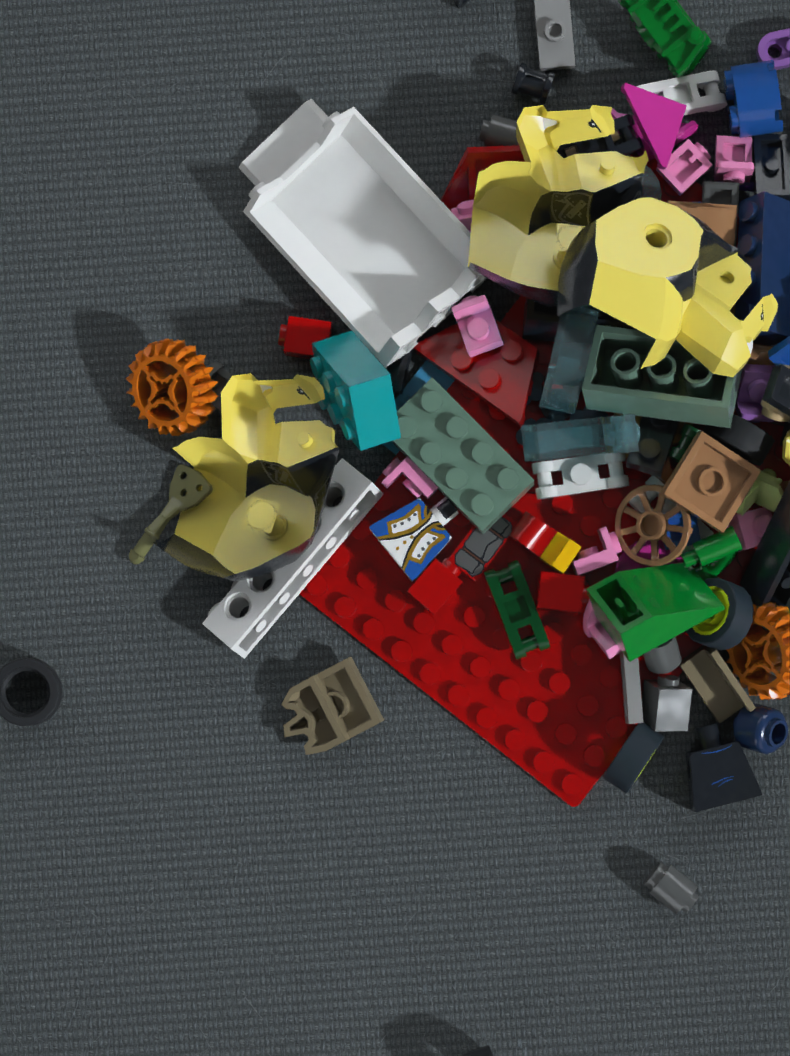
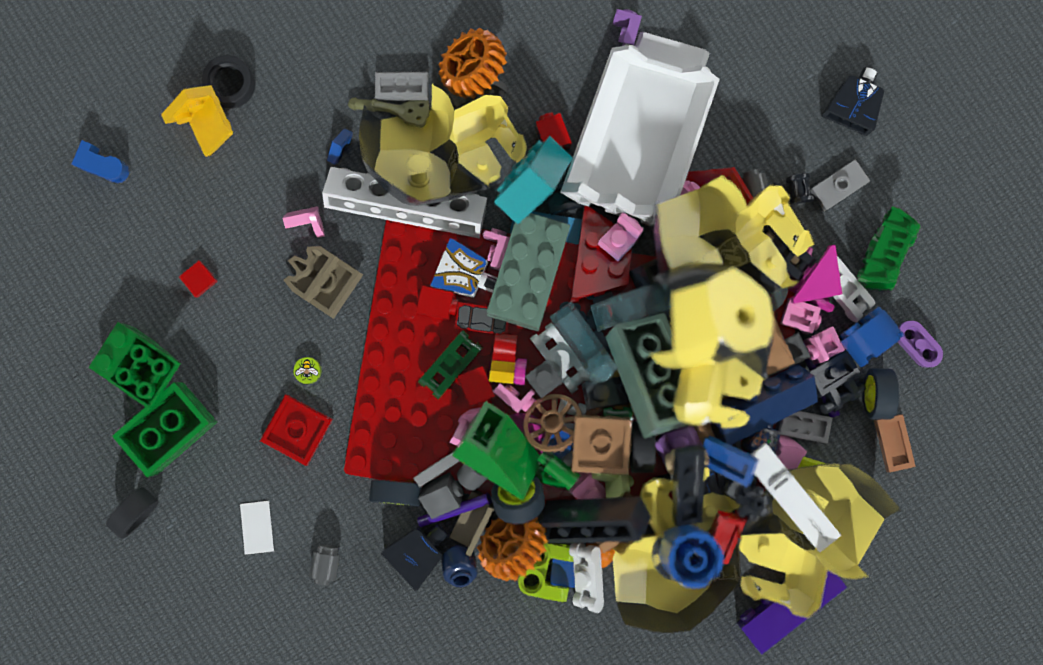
camera: 60 degrees right, 0 degrees up
(54, 893) = (104, 167): none -> blue leg
(59, 743) = (205, 115): none -> yellow bracket
(147, 486) = (401, 85): none -> light grey plate
(179, 600) = (337, 146): none -> blue tile
(237, 181) = (630, 24): none -> medium lavender bracket
(243, 690) = (303, 217): none -> bright pink tile
(246, 858) = (198, 279): none -> red tile
(314, 982) = (135, 364): none -> green slope
(408, 991) = (166, 431): none -> green brick
(428, 785) = (307, 370): none -> tile
(492, 837) = (296, 430): none -> red tile
(571, 531) = (520, 371): none -> dark pink tile
(583, 948) = (256, 527): none -> white sticker
(595, 508) = (543, 379): none -> dark grey brick
(694, 682) = (465, 506): none -> dark purple bar

